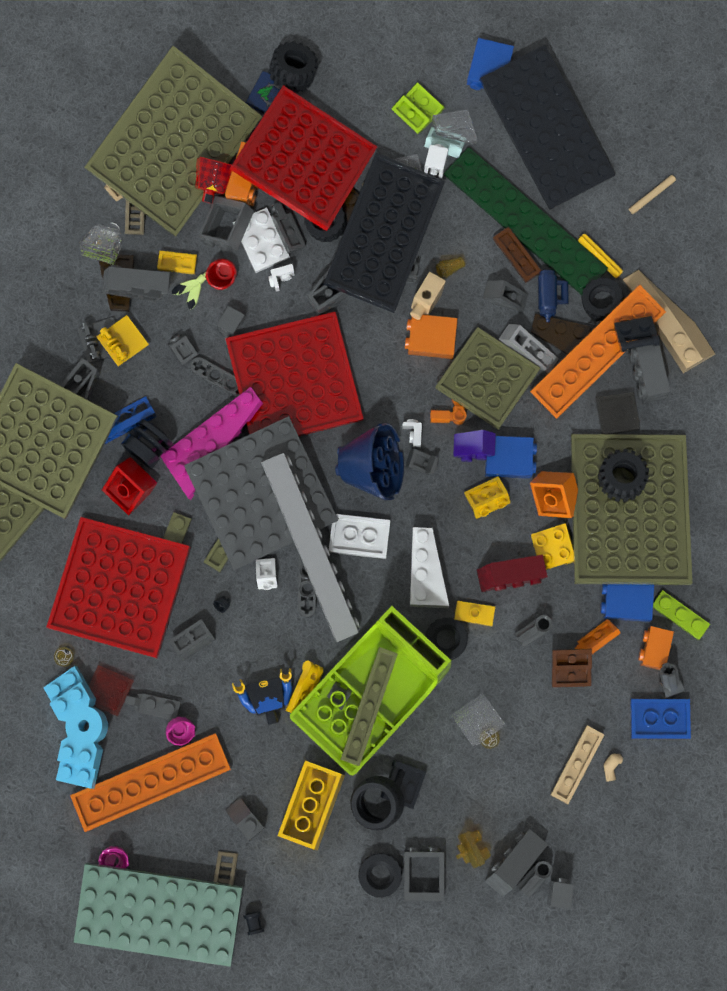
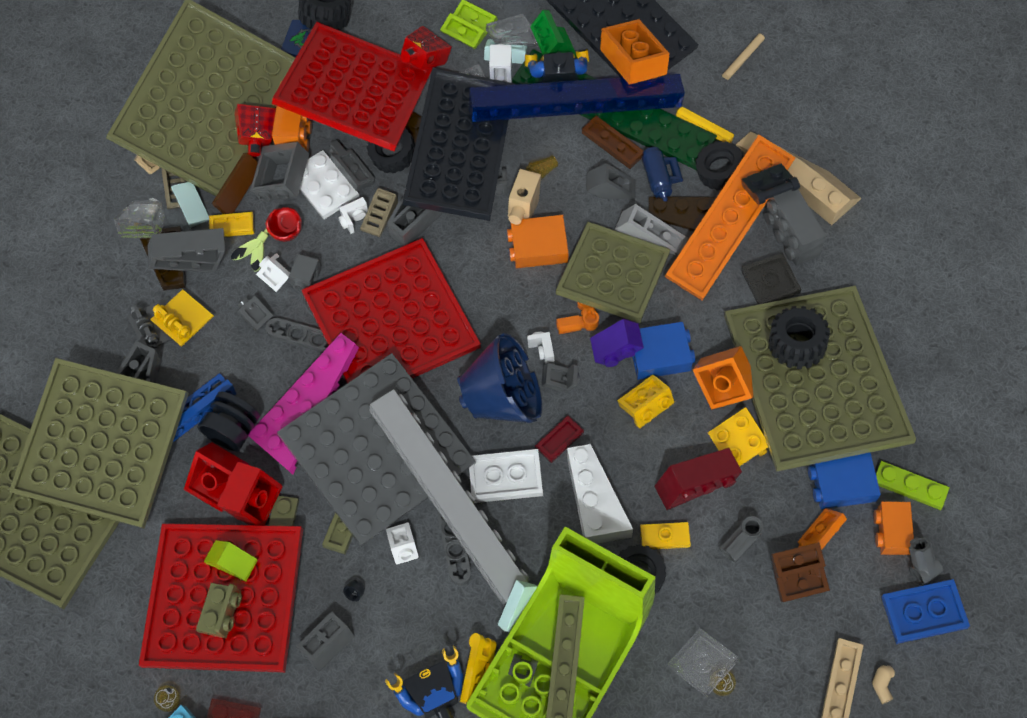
camera: 10 degrees left, 15 degrees down
(115, 599) = (219, 610): none -> olive bracket
(129, 561) = (231, 560): none -> lime slope
(145, 235) = (190, 203): none -> light aqua slope
(153, 511) = (249, 494): none -> red brick
(187, 226) = (236, 185): none -> reddish brown tile
(204, 316) = (273, 272): none -> white bracket
(307, 262) = (384, 200): none -> dark tan slope
(344, 645) = (516, 603): none -> light aqua slope
(373, 129) = (425, 49): none -> red torso
(409, 514) = (559, 439): none -> dark red tile
(485, 178) = (558, 66): none -> black torso
(488, 145) = (549, 36): none -> green bracket
(494, 209) = (574, 98): none -> clear blue brick
(553, 179) = (634, 51): none -> orange brick

